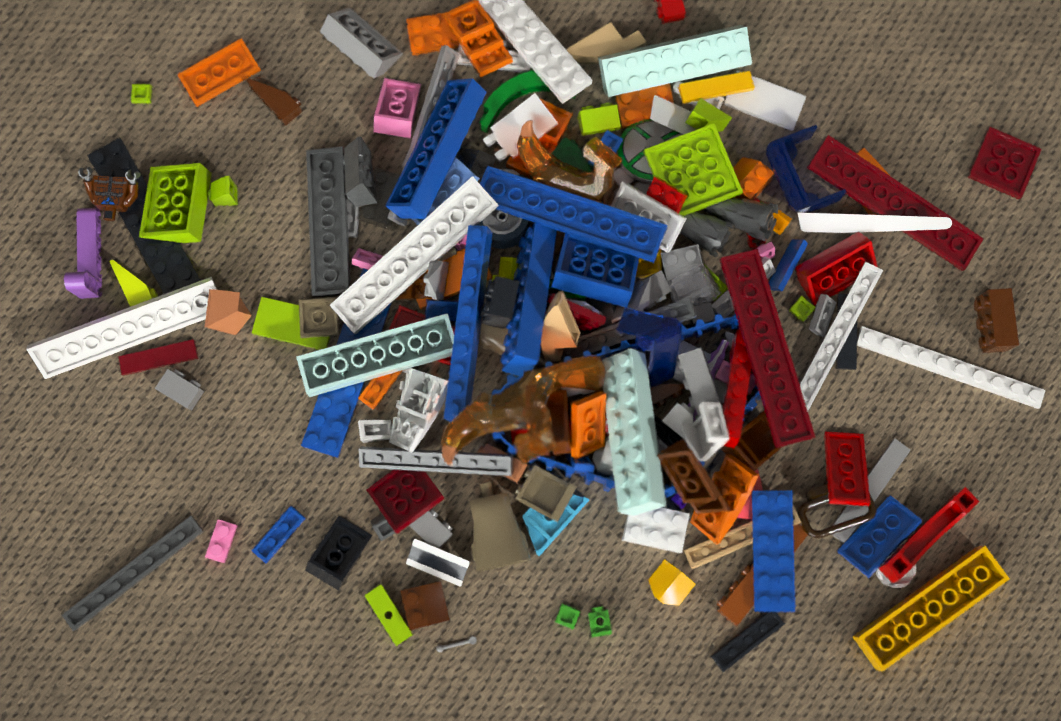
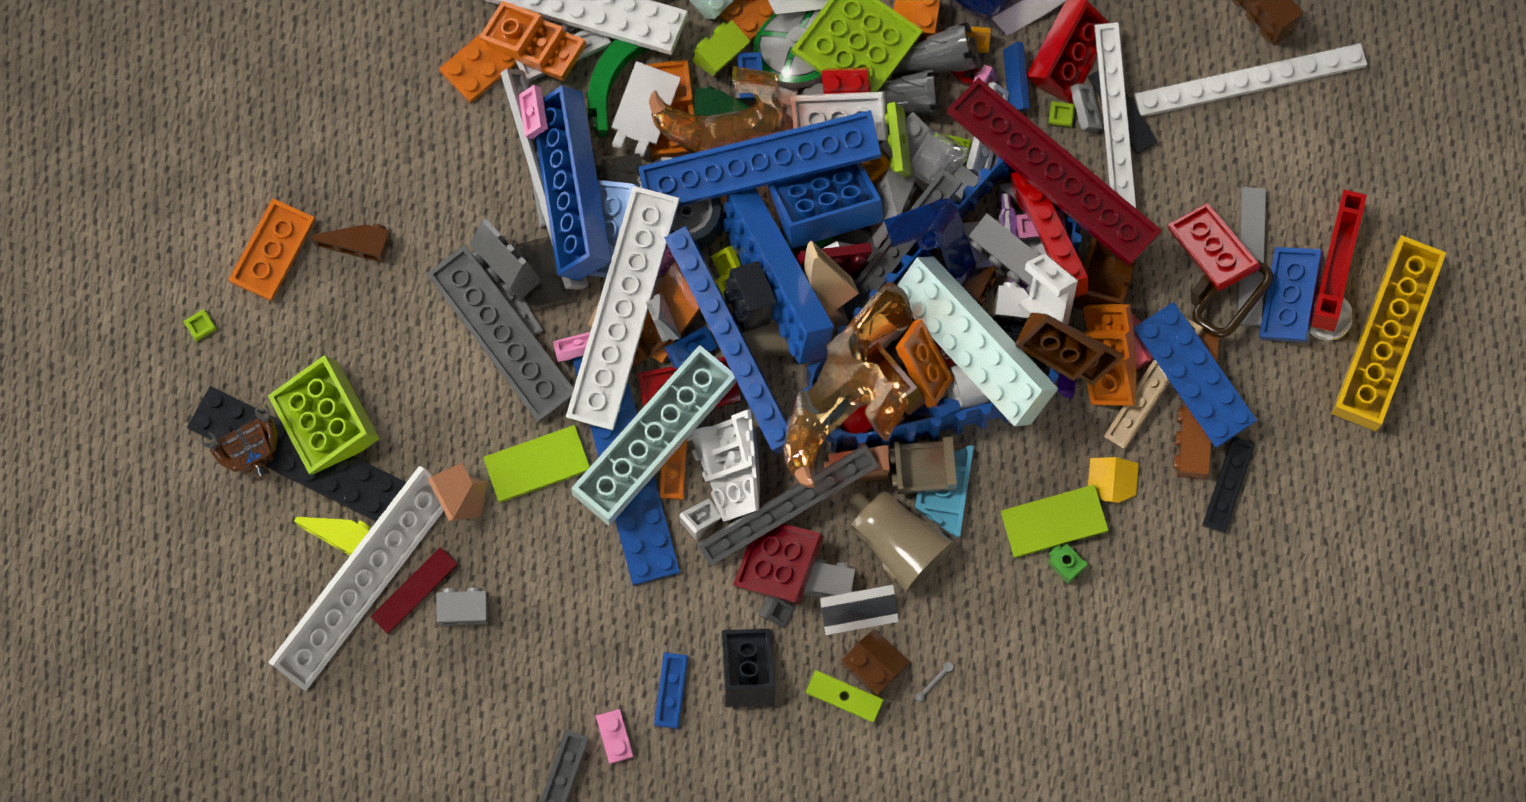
camera: 30 degrees left, 5 degrees down
(87, 279) = (262, 528): medium lavender beam -> none
(223, 192) = (367, 372): lime slope -> none
(318, 318) = (560, 439): dark tan tile -> none
(360, 42) = (406, 123): light grey slope -> none
(396, 108) = (494, 168): bright pink slope -> none
(444, 84) = (533, 111): none -> bright pink plate
(567, 616) = (1029, 579): bright green tile -> none
(610, 587) = (1054, 521): none -> lime tile
(657, 529) = (1061, 430): white brick -> none
(674, 257) = (898, 139): none -> lime tile

